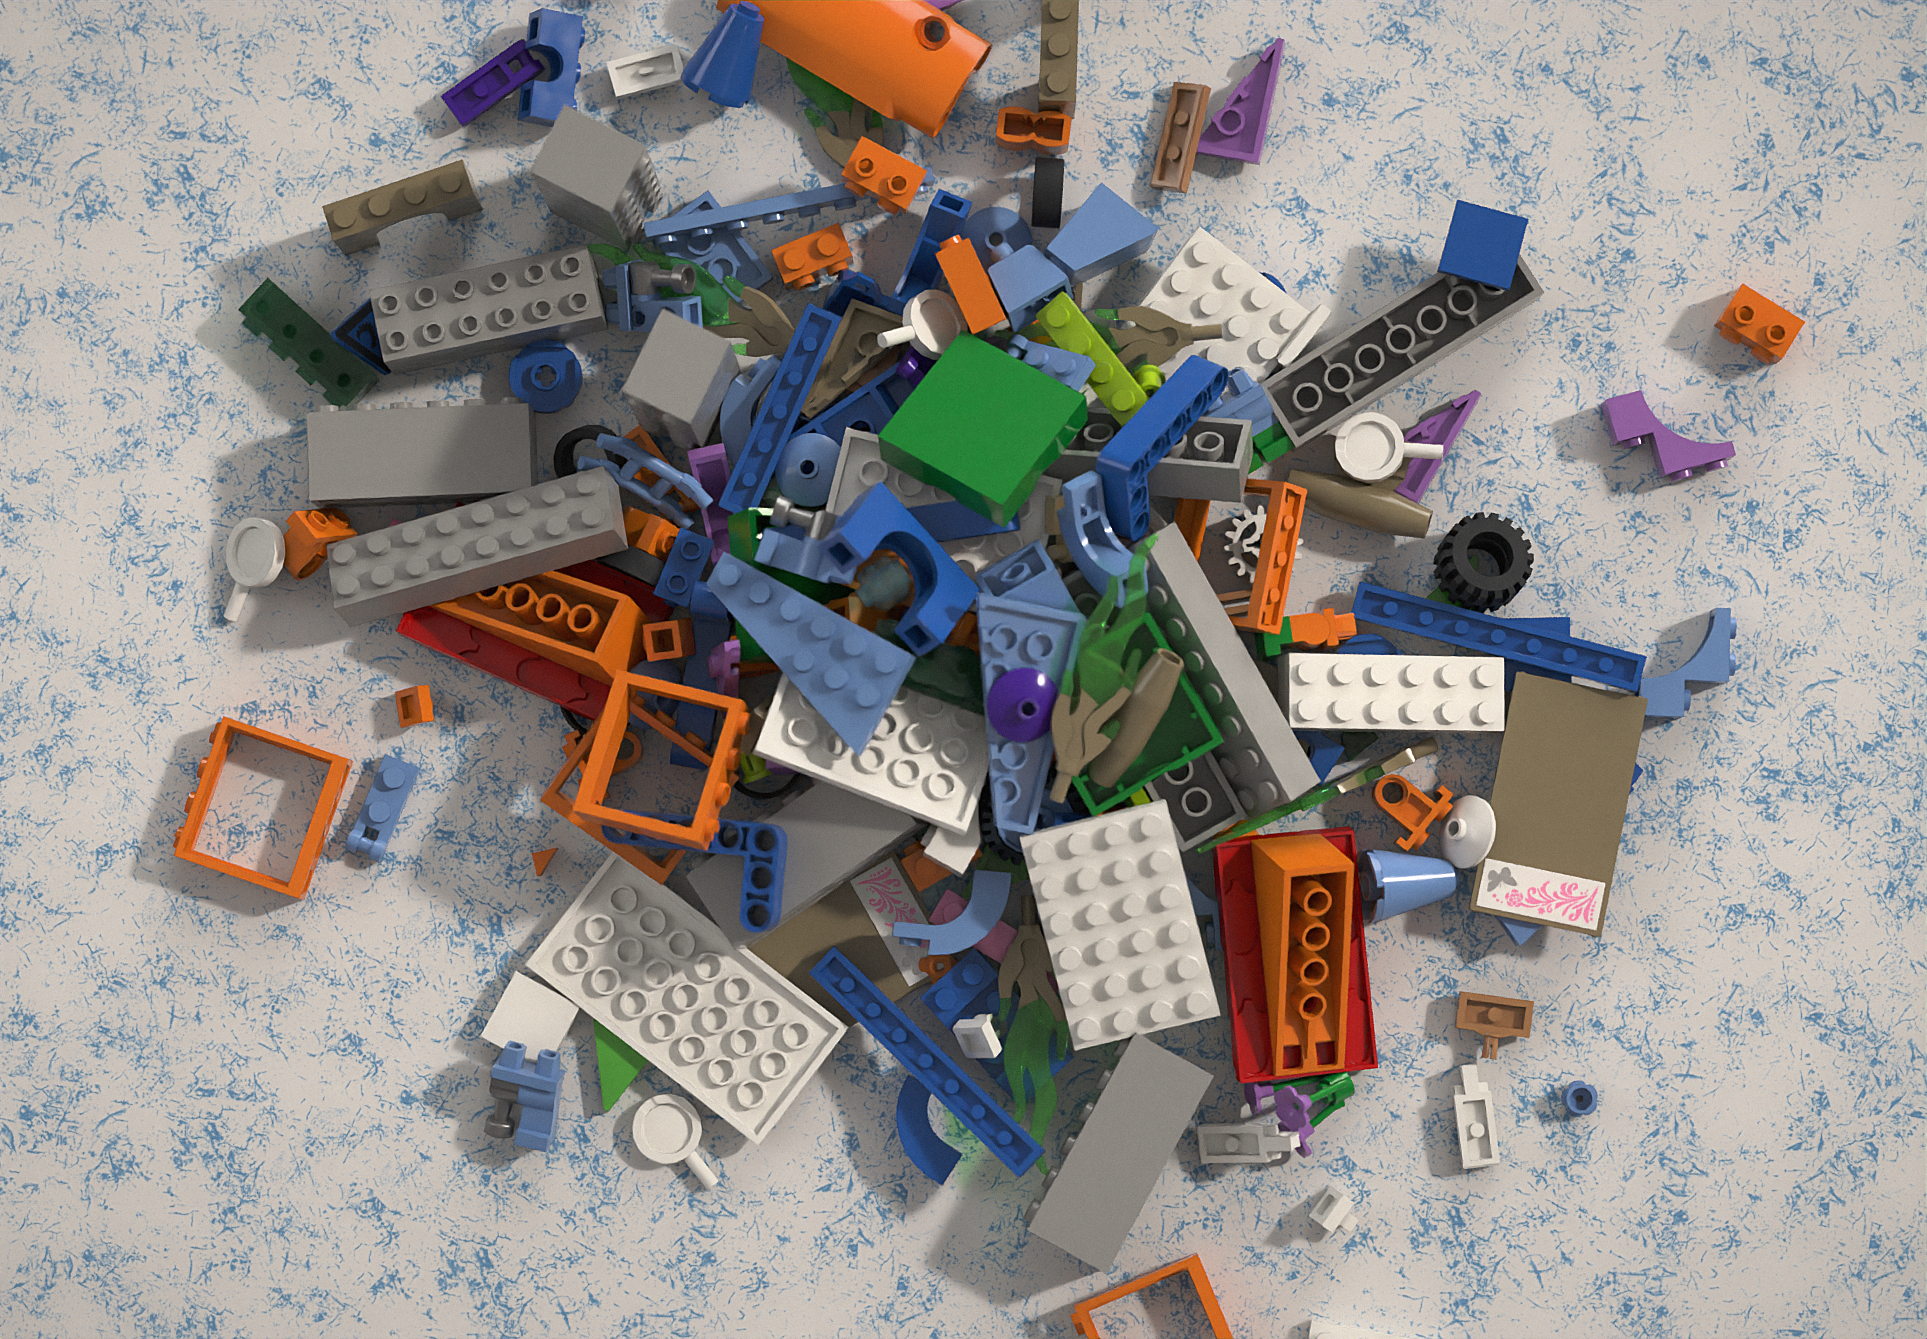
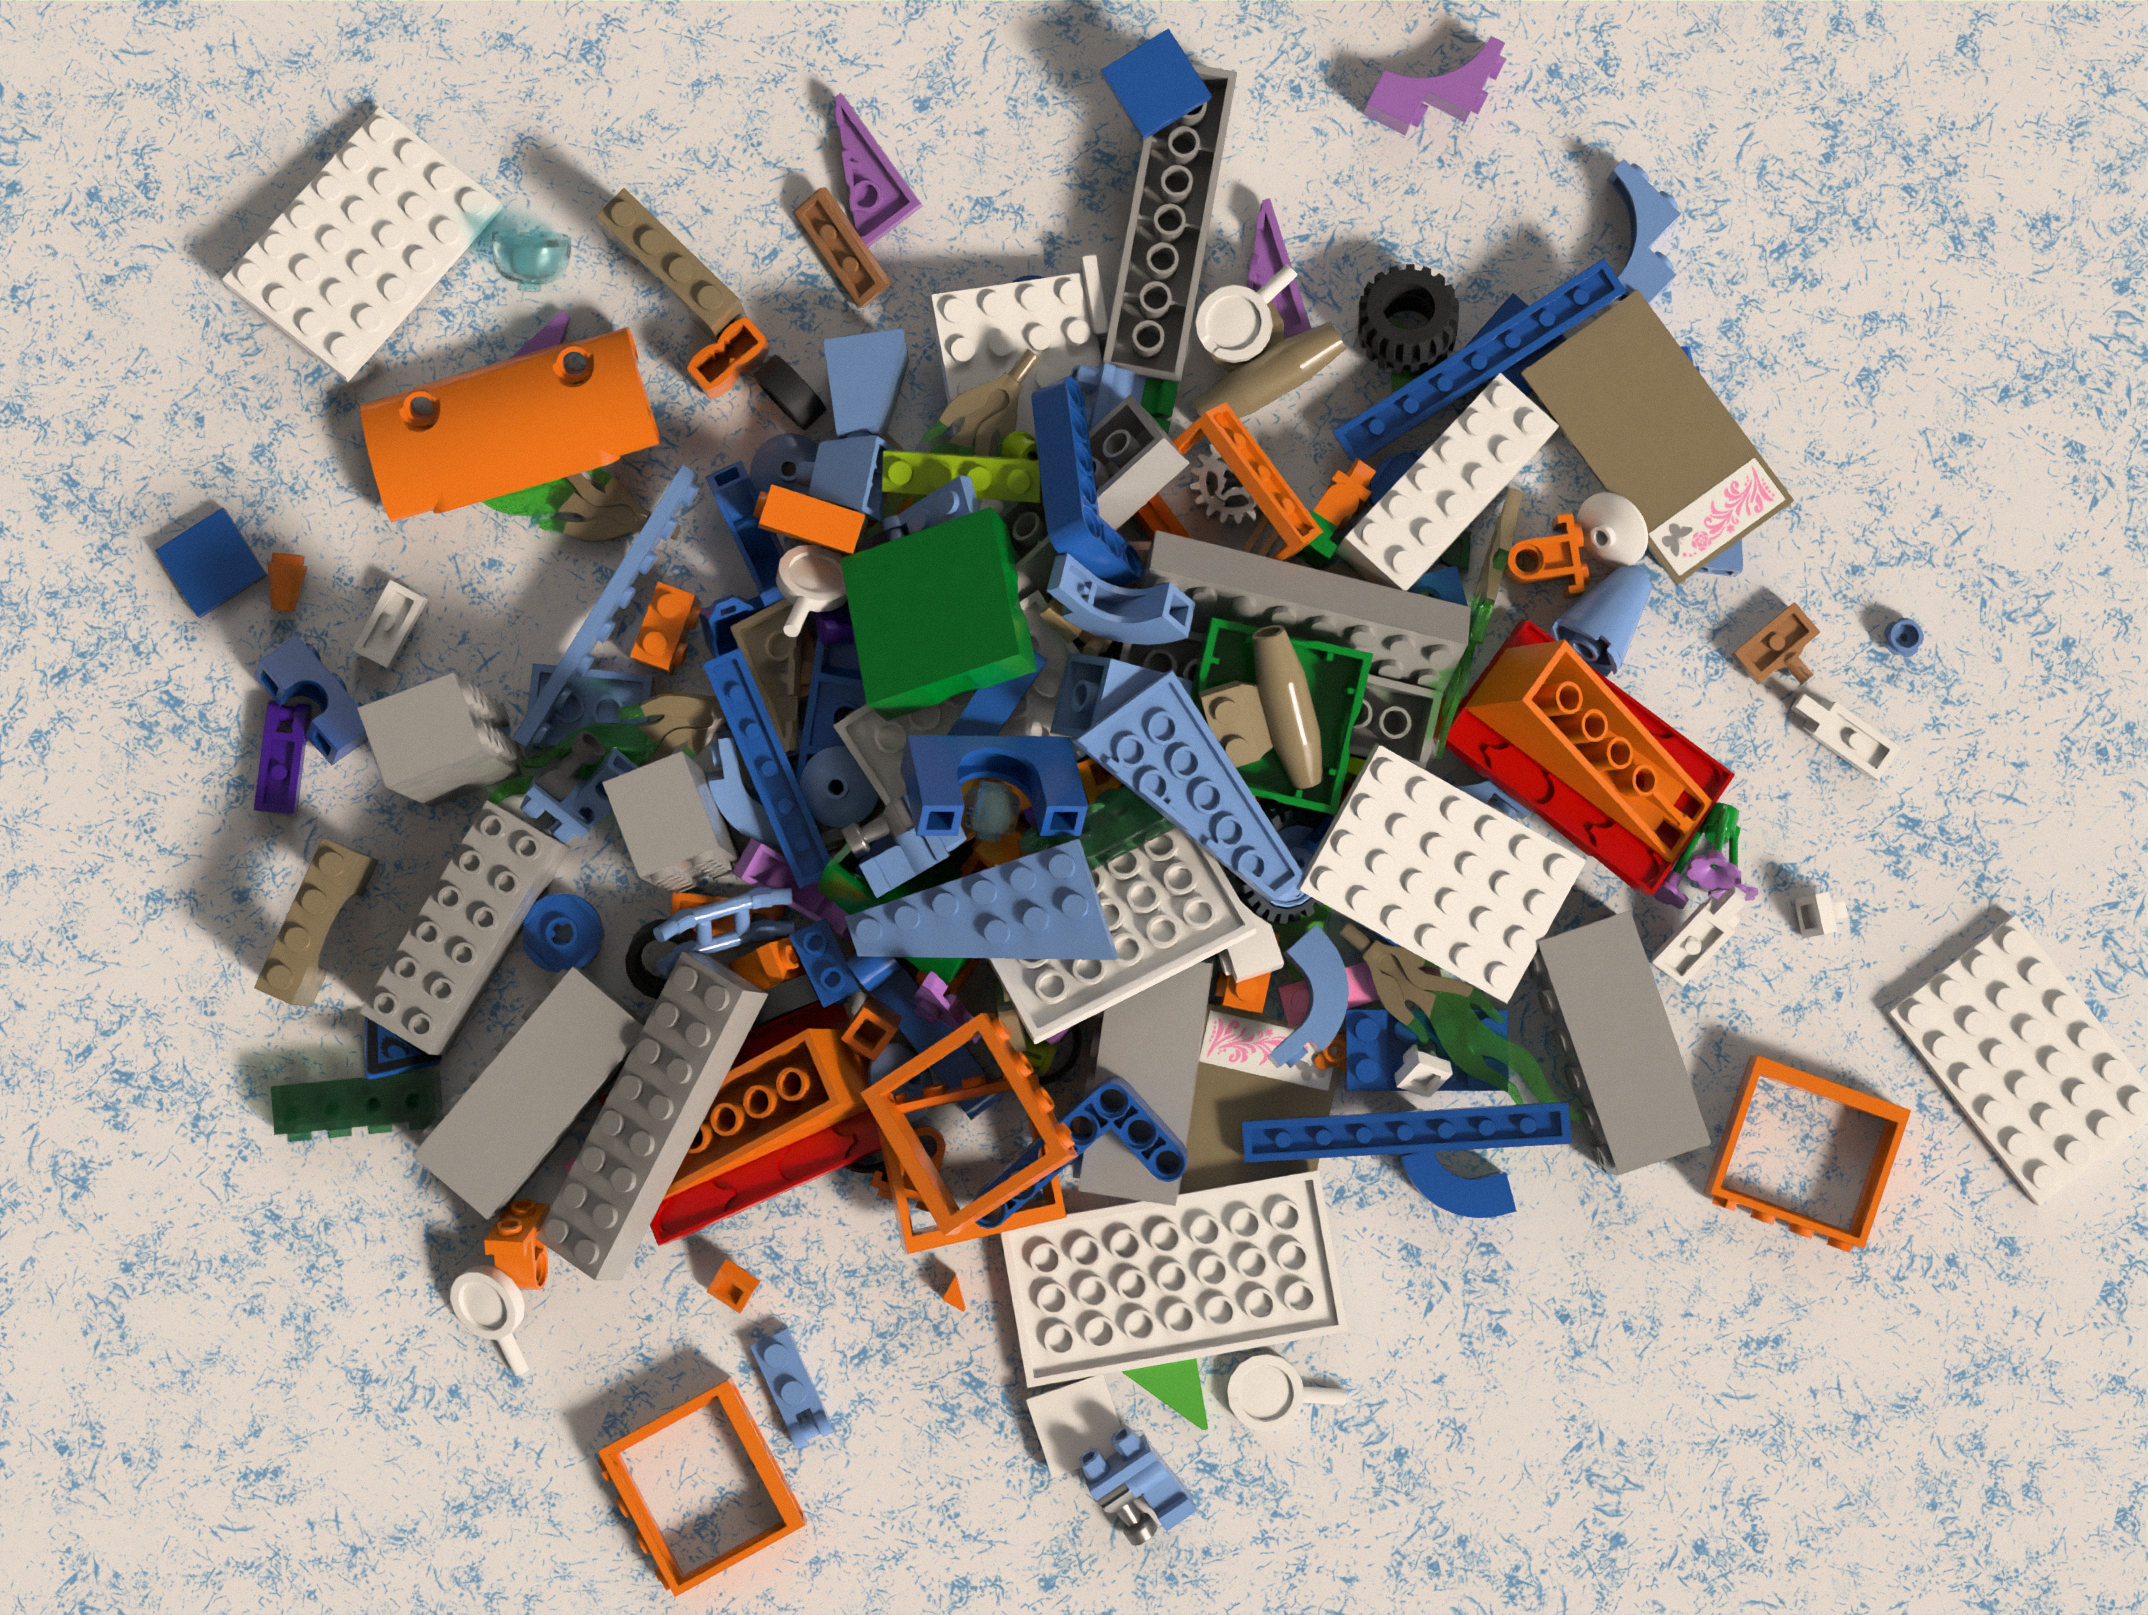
camera: 50 degrees left, 0 degrees up
(728, 57) = (440, 546): blue cone -> none
(882, 176) = (655, 510): orange brick -> none
(1009, 695) = (1180, 787): dark purple dish -> none
(1100, 690) = (1243, 713): piece -> none

